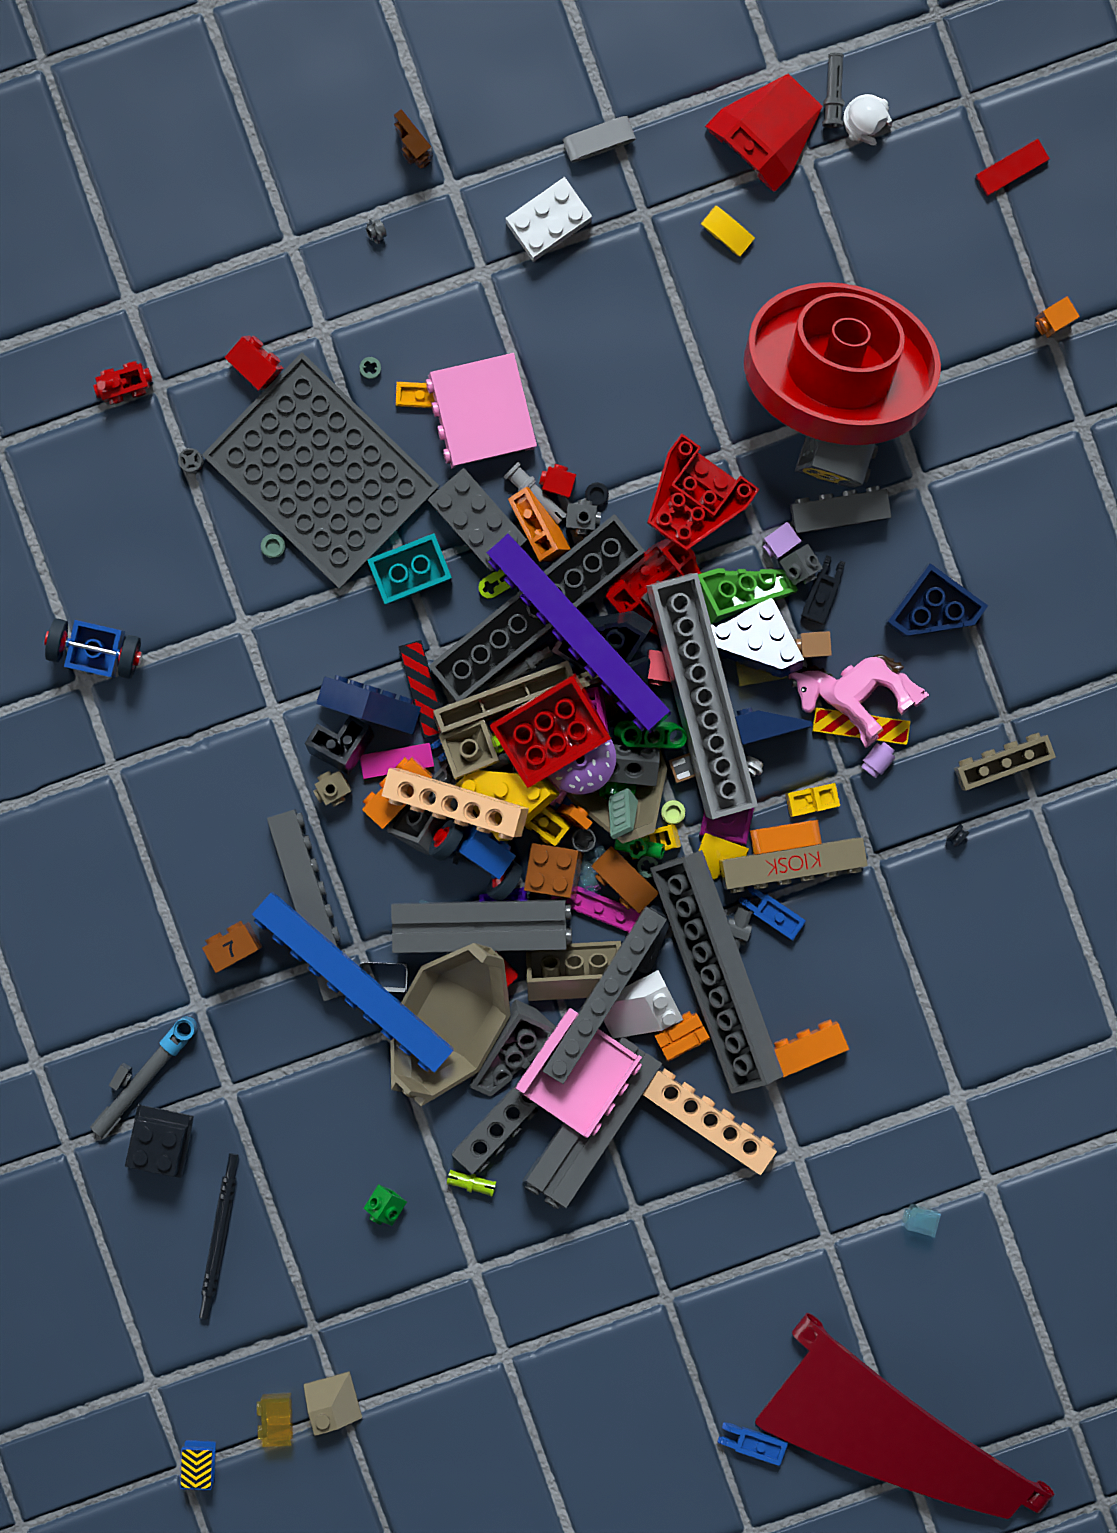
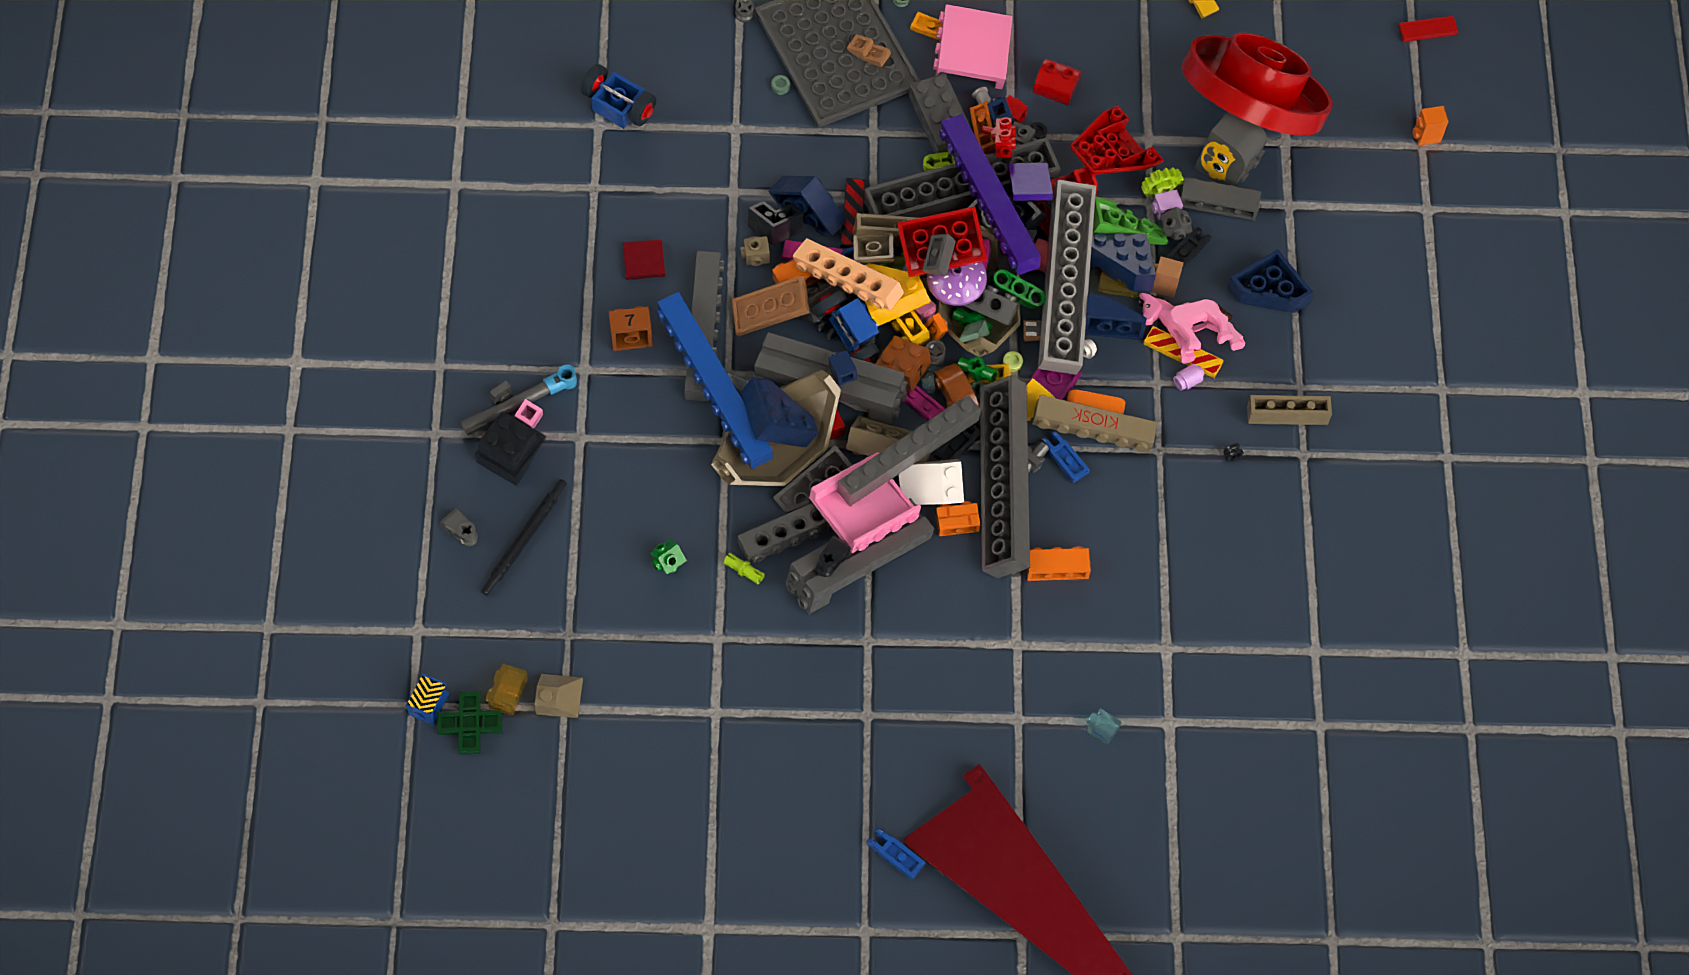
camera: 15 degrees right, 25 degrees down
(142, 1253) = (460, 527): none -> dark grey piece
(163, 1095) = (529, 413): none -> bright pink brick
(208, 842) = (643, 259): none -> dark red tile
(252, 1470) = (469, 723): none -> dark green plate
(361, 466) = (868, 51): none -> medium nougat slope
(378, 857) = (770, 306): none -> medium nougat tile
(409, 569) = (877, 127): teal brick -> none
(440, 1004) = (776, 415): none -> dark blue brick
(494, 928) = (842, 367): none -> dark blue brick
(548, 508) = (999, 104): none -> dark blue brick
(553, 753) = (939, 254): none -> dark grey slope
(564, 537) = (1003, 136): none -> red brick
(568, 1152) = (832, 557): none -> black piece
(596, 416) = (1057, 81): none -> red brick
(618, 593) = (1030, 181): none -> tile
(754, 1160) = (981, 631): light nougat brick -> none
(768, 520) = (1162, 182): none -> lime gear
(812, 799) = (1130, 390): yellow slope -> none

